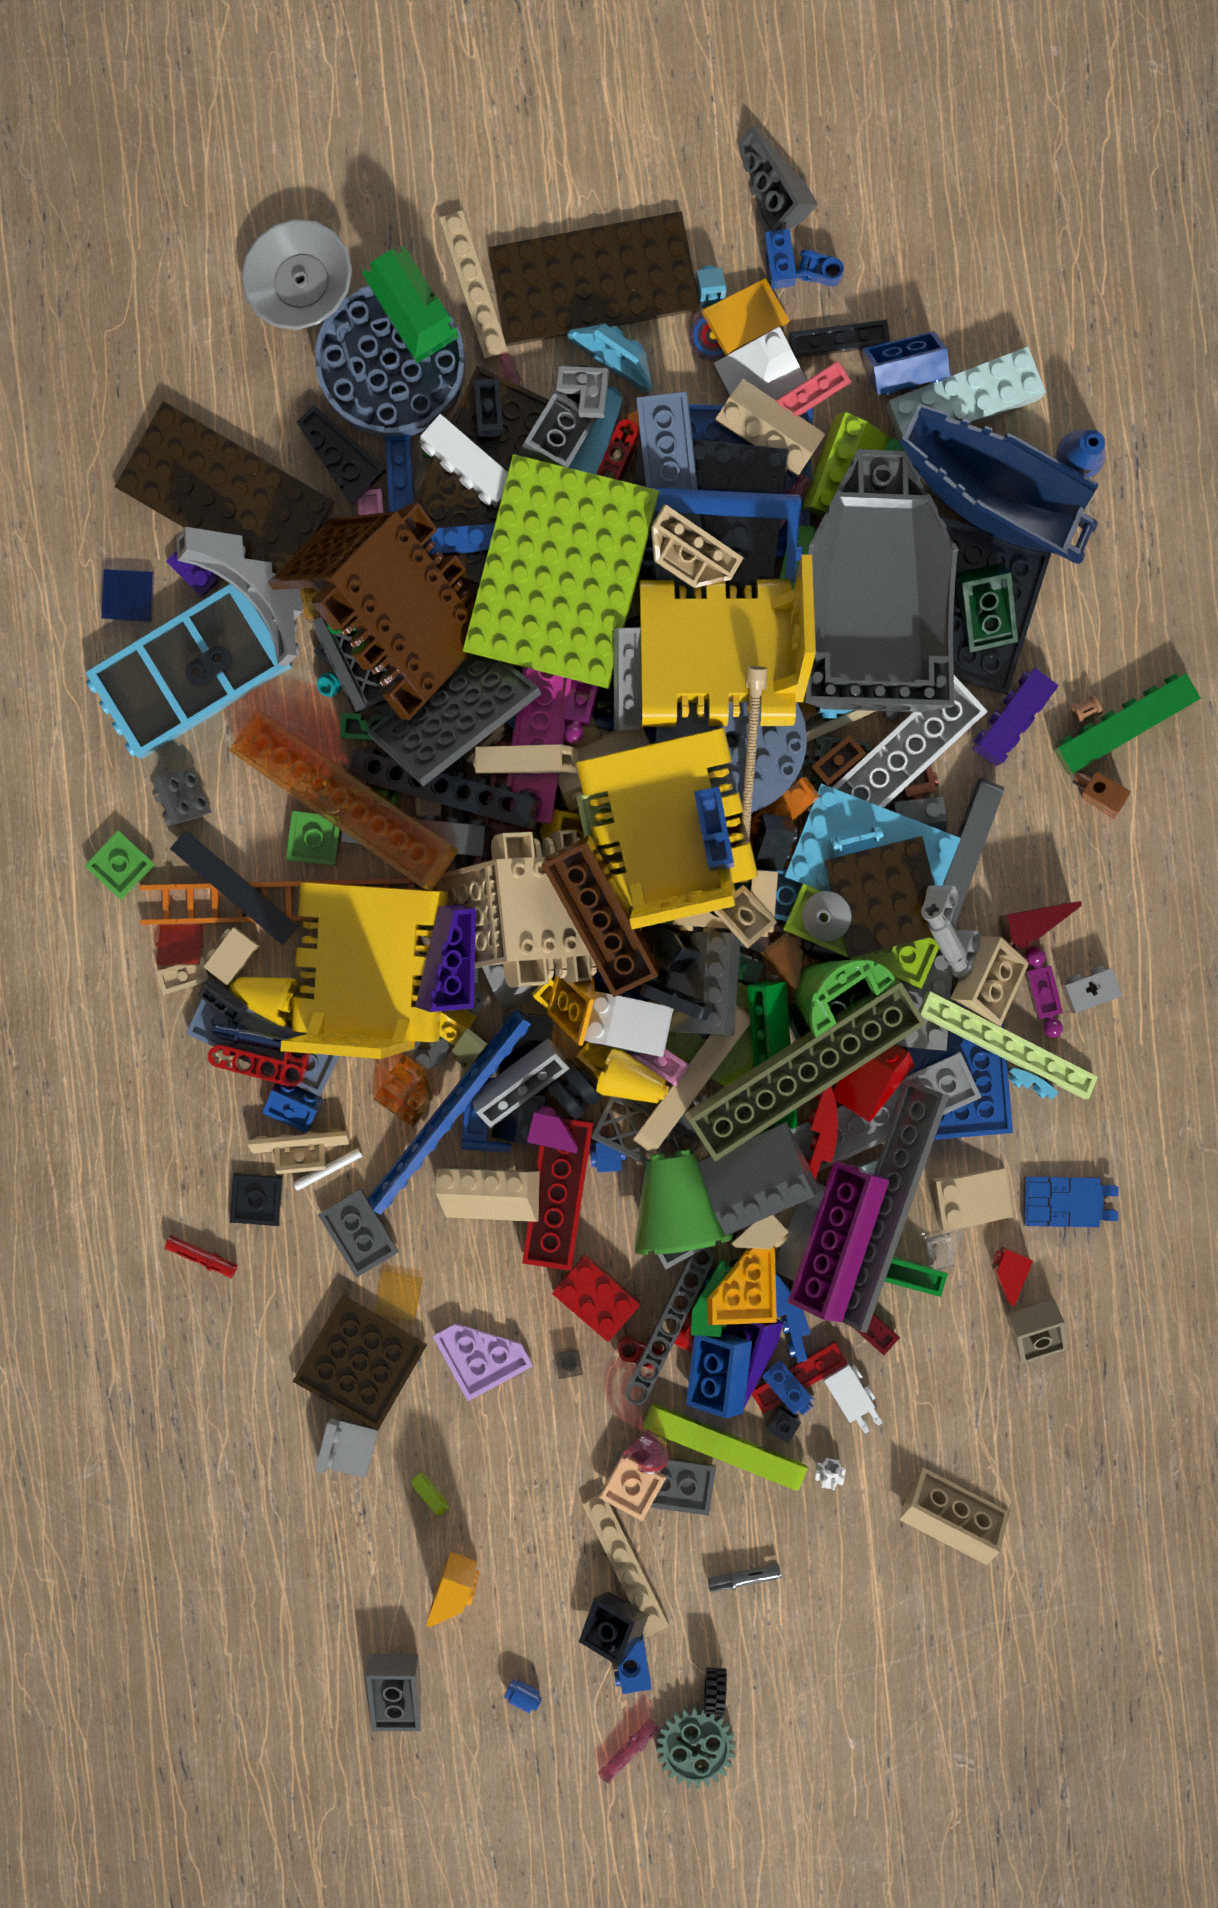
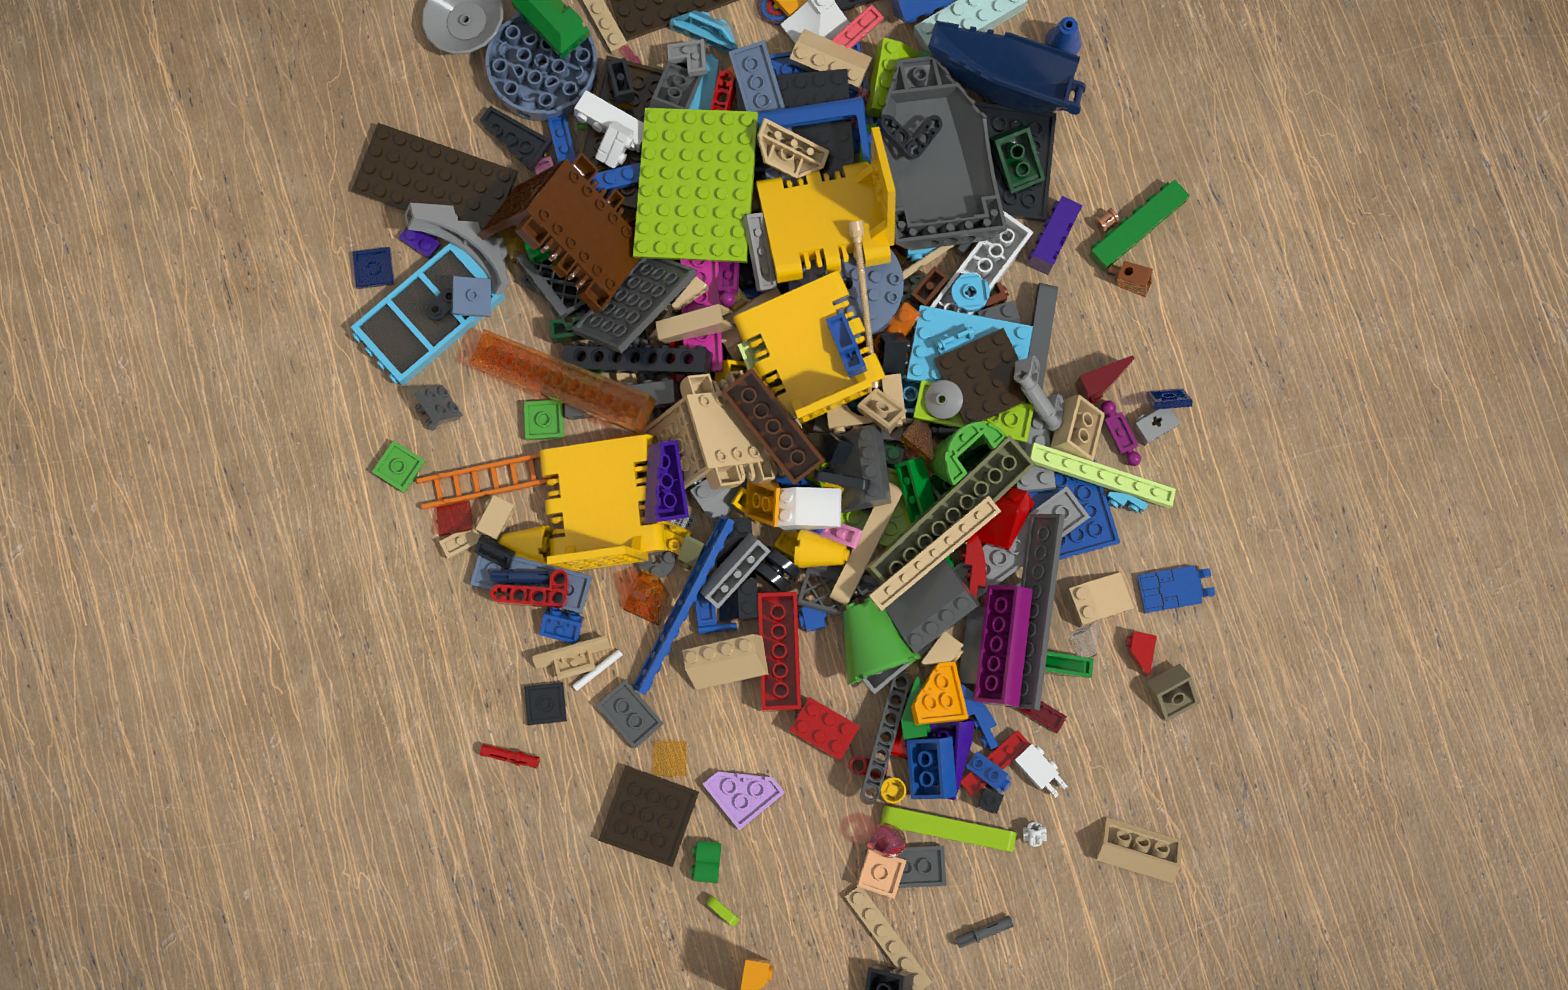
camera: 10 degrees left, 10 degrees down
(234, 887) = (489, 466): black tile -> none
(245, 663) = (471, 296): none -> sand blue plate
(328, 684) = (535, 304): teal plate -> none
(346, 1448) = (650, 886): light grey bracket -> none
(421, 1432) = (707, 862): none -> green brick
(464, 496) = (614, 144): none -> white brick
(529, 715) = (690, 293): none -> tan slope
(551, 1131) = (765, 599): magenta slope -> none
(568, 1364) = (813, 786): clear smoke plate -> none
(666, 1390) = (893, 790): none -> yellow wheel
(774, 1117) = (934, 553): none -> tan plate
(851, 565) = (909, 141): none -> black beam
(900, 769) = (977, 284): none -> medium azure plate
(1114, 962) = (1169, 399): none -> clear blue tile

